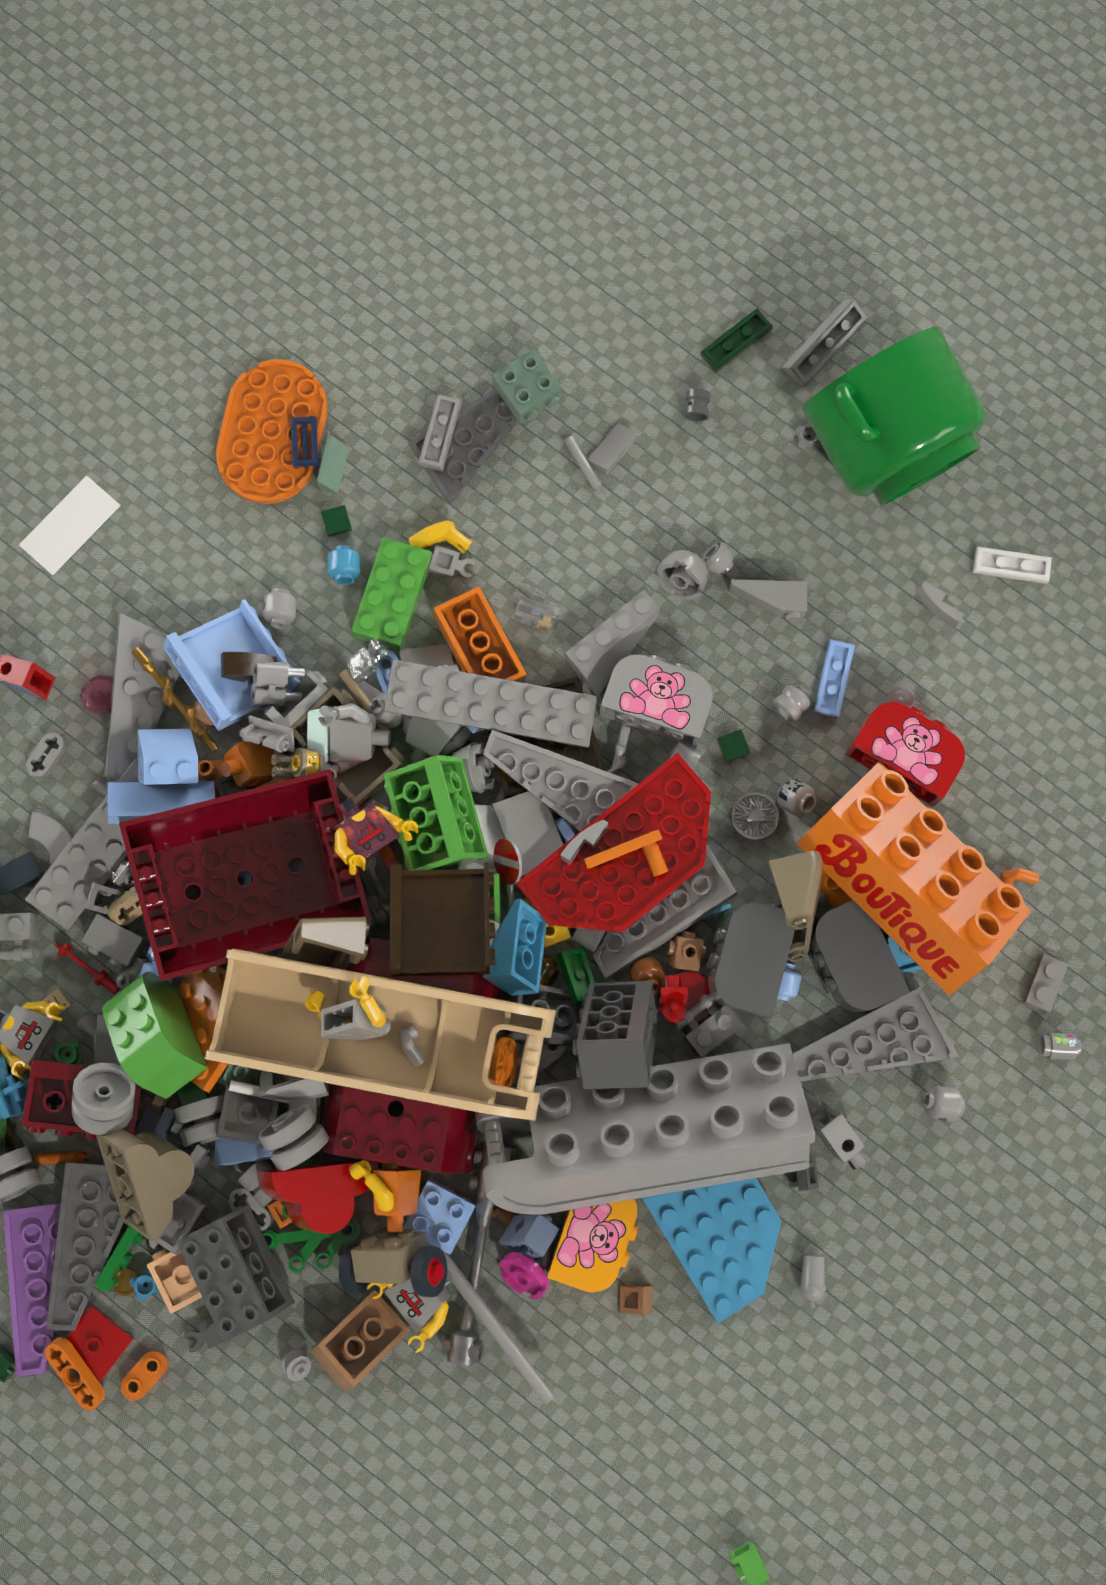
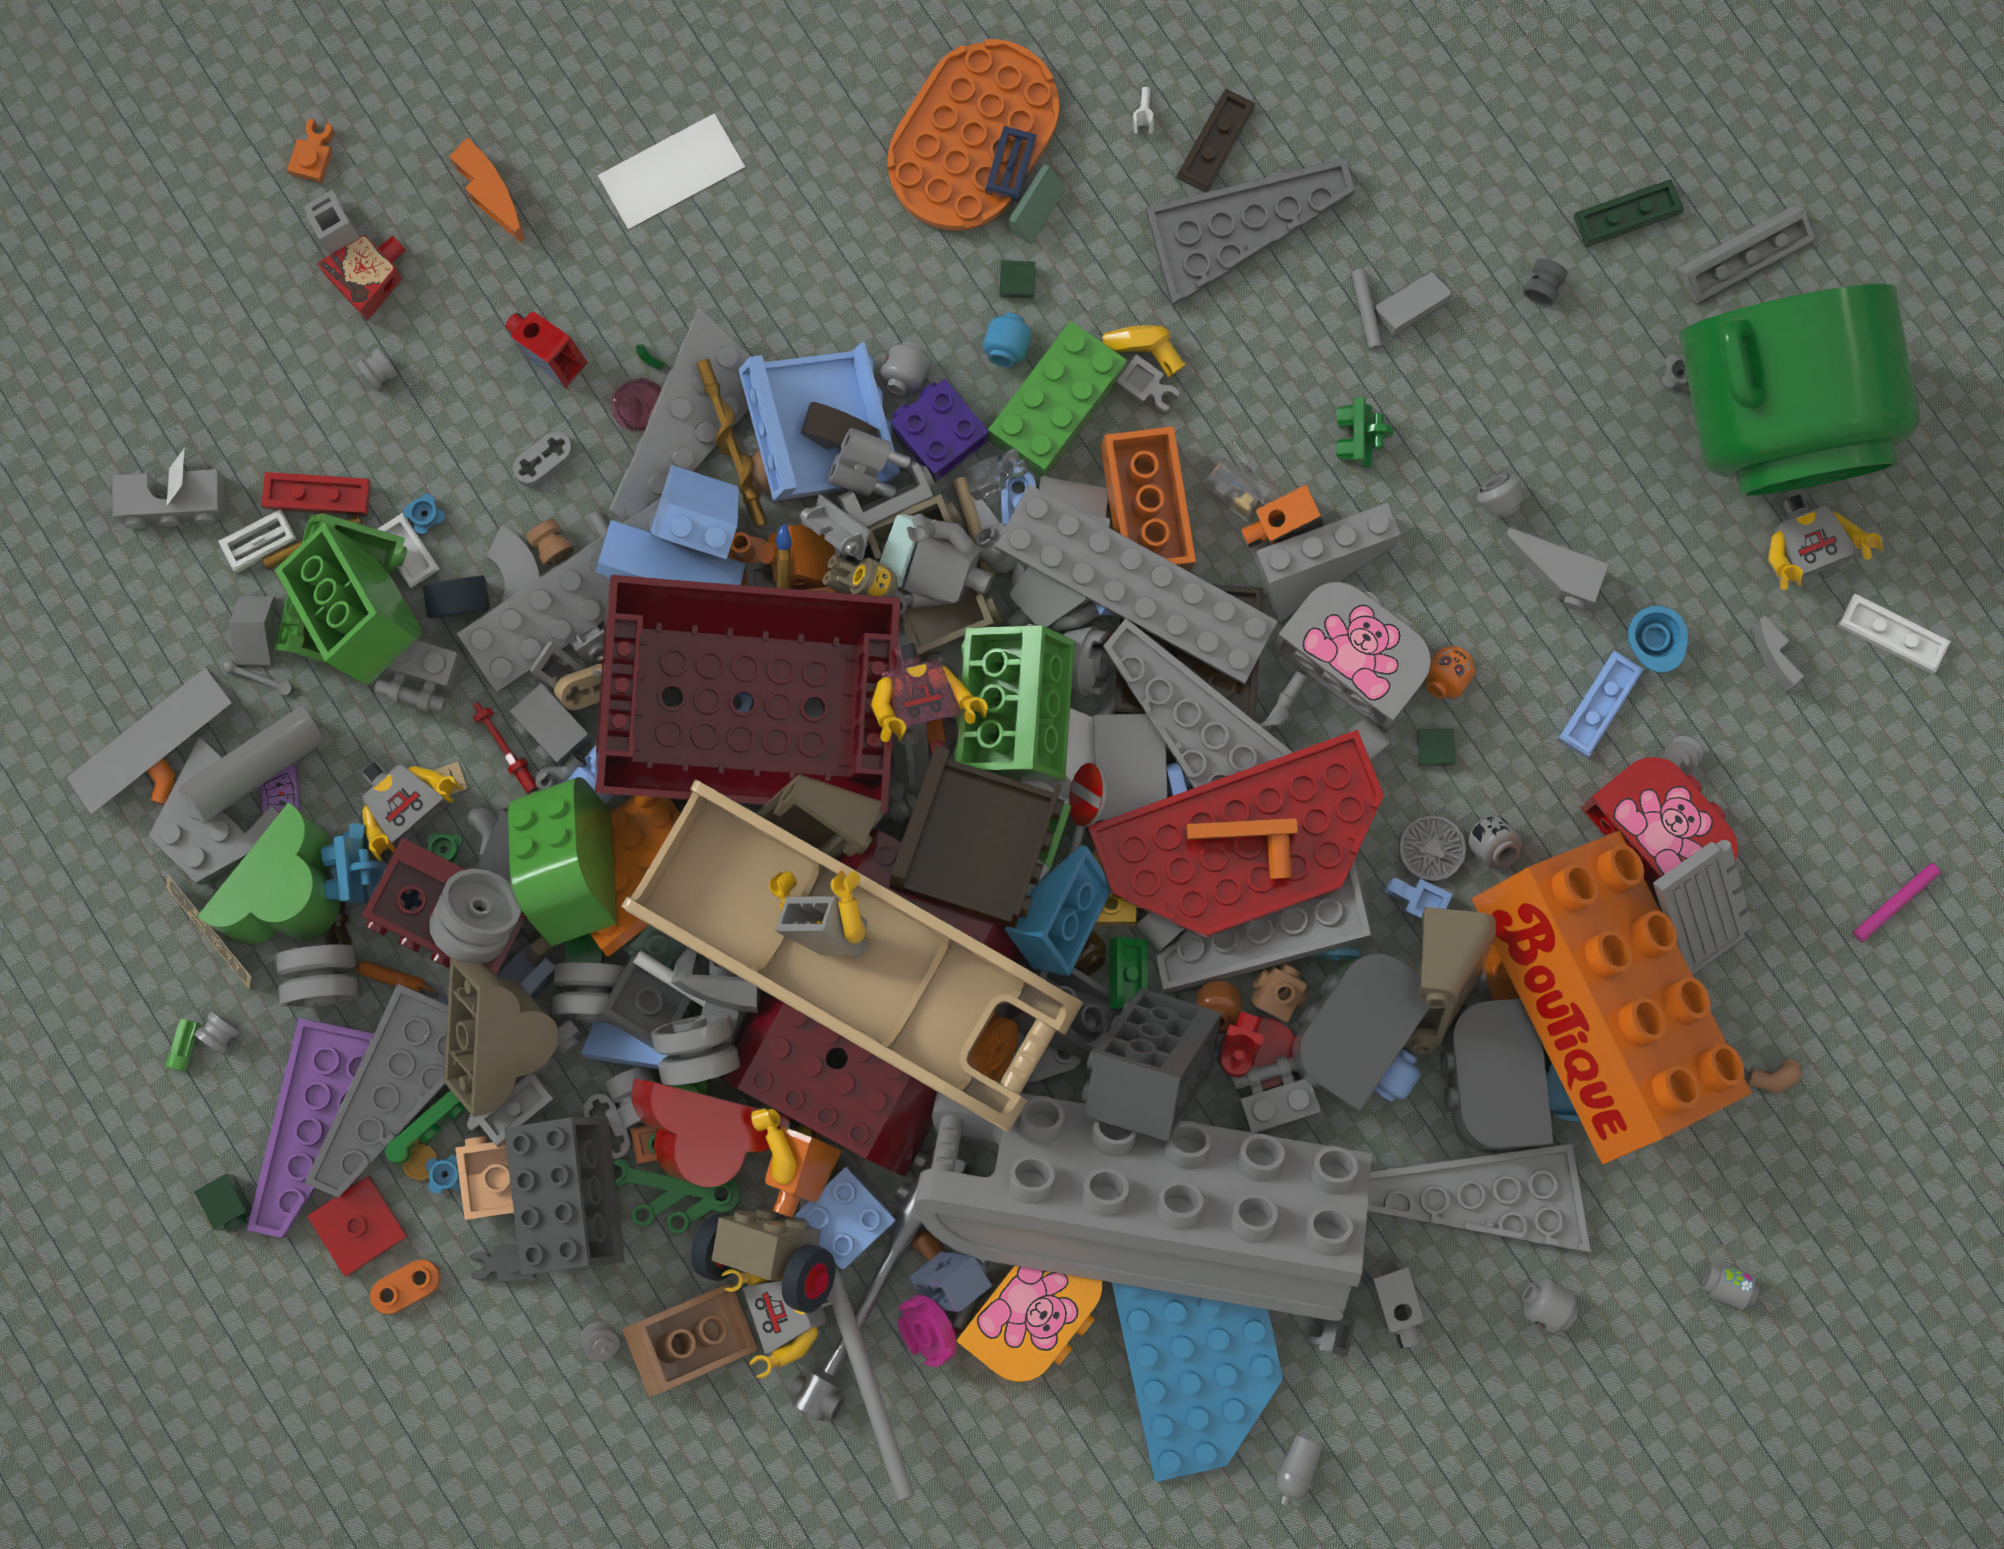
camera: 25 degrees right, 0 degrees up
(71, 812) = (551, 544): none -> medium nougat wheel
(75, 1361) = (336, 1275): orange beam -> none
(97, 660) = (643, 354): none -> green leg
(238, 767) = (783, 567): none -> pearl gold piece
(317, 642) = (939, 429): none -> dark purple brick
(385, 380) = (1144, 115): none -> white hand
(409, 1047) = (880, 981): light grey arm -> none
(440, 376) = (1216, 140): none -> dark brown tile
(440, 432) = (1191, 208): light grey tile -> none
(527, 386) = (1327, 185): sand green brick -> none
(582, 615) = (1295, 508): none -> orange torso
(589, 836) = (1204, 798): light grey slope -> none
(604, 538) = (1360, 446): none -> green hips
(636, 1299) = (1060, 1414): medium nougat slope -> none
(683, 573) = (1448, 499): light grey cylinder -> none
(725, 691) = (1449, 672): none -> orange head
(759, 853) = (1418, 897): none -> light blue plate
(791, 703) = (1532, 717): light grey piece -> none
(858, 621) = (1658, 638): none -> dark azure piece
(939, 520) = (1815, 542): none -> torso
(954, 791) = (1705, 904): none -> light grey hinge
(1019, 874) = (1757, 1044): orange arm -> none
(1043, 894) = (1779, 1080): none -> medium nougat arm
(1045, 983) = (1741, 1198): light grey plate -> none
(1077, 746) = (1896, 902): none -> dark pink bar

